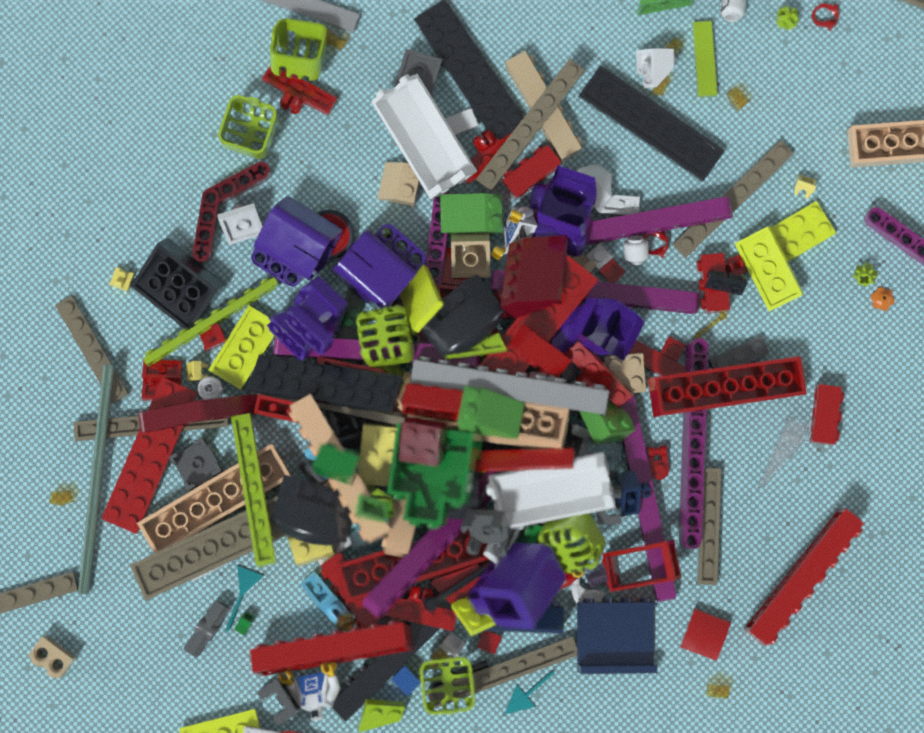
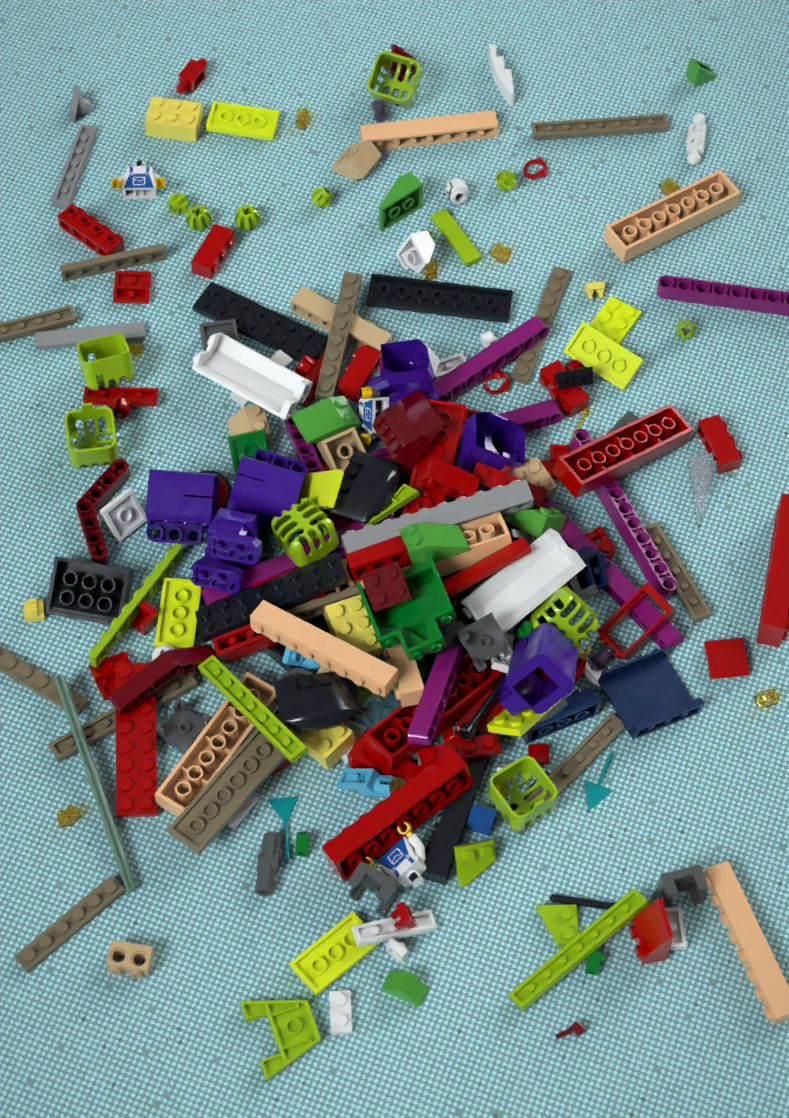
camera: 30 degrees left, 25 degrees down
(194, 371) = (141, 651): light yellow tile -> none
(336, 463) = (320, 631): green brick -> none
(372, 509) = (370, 656): bright green slope -> none
(386, 209) = (246, 445): none -> green tile
(636, 250) = (483, 391): white head -> none
(672, 196) = (487, 339): none -> white piece
(879, 302) = (710, 344): orange plant -> none

